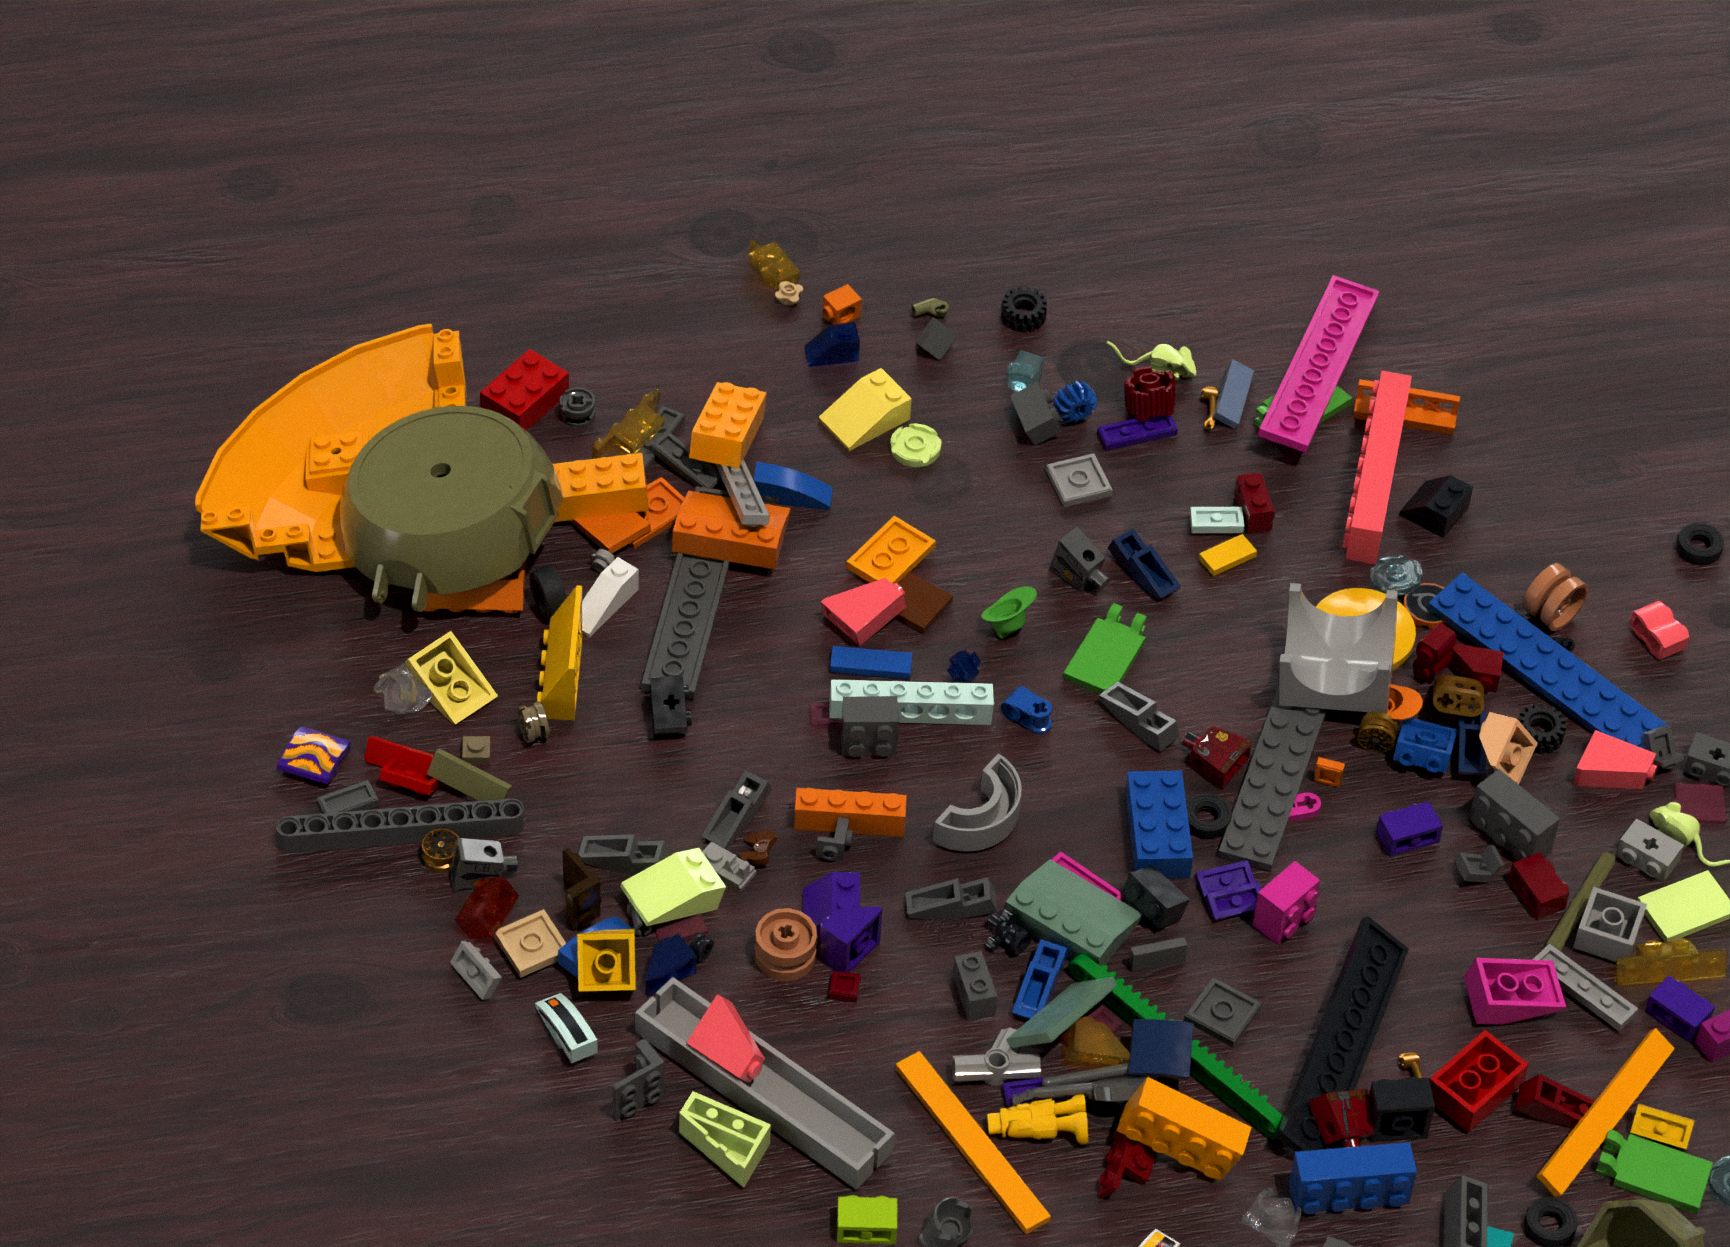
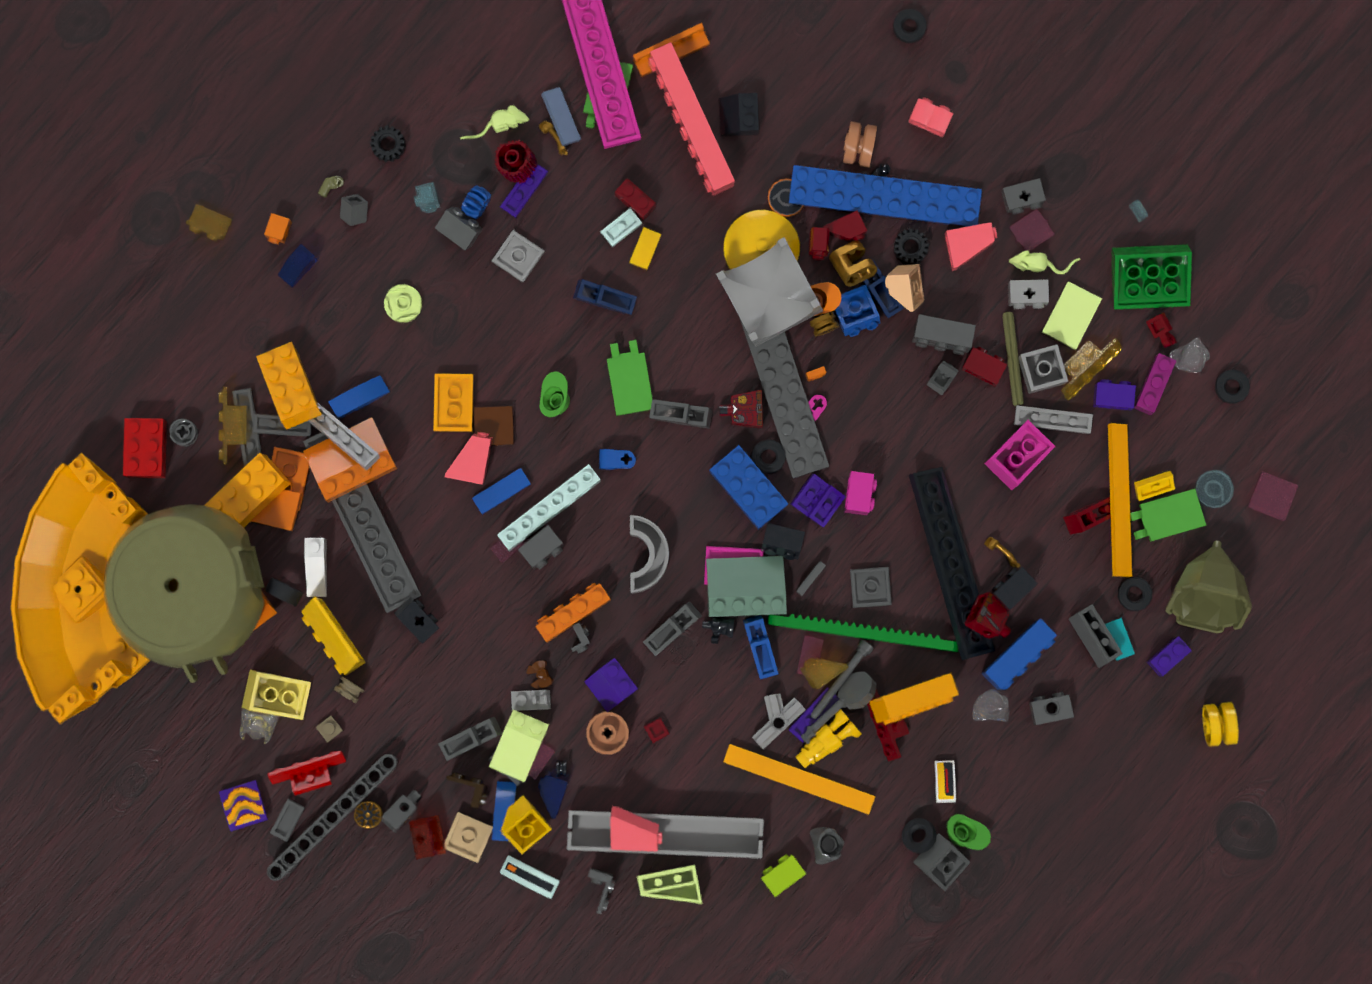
camera: 35 degrees left, 35 degrees up
(467, 777) = (346, 759): olive tile -> none
(476, 970) = (453, 880): light grey plate -> none
(601, 560) = (292, 538): light grey plate -> none
(737, 810) = (508, 659): dark grey slope -> none
(788, 293) = (241, 240): tan plate -> none
(849, 936) = (640, 705): dark purple slope -> none
(867, 410) = (355, 302): light yellow slope -> none
(964, 665) = (558, 456): clear blue gear -> none
(974, 985) = (728, 679): dark grey brick -> none
(1061, 1012) = (792, 667): sand green tile -> none
(1079, 561) = (561, 328): dark grey torso -> none
(1160, 1049) = (862, 650): dark blue slope -> none
(1396, 574) = (753, 190): clear light blue tile -> none
(1409, 828) = (887, 380): dark purple brick -> none
(1477, 1080) = (1040, 535): red brick -> none
(1661, 742) = (989, 211): dark grey bracket -> none

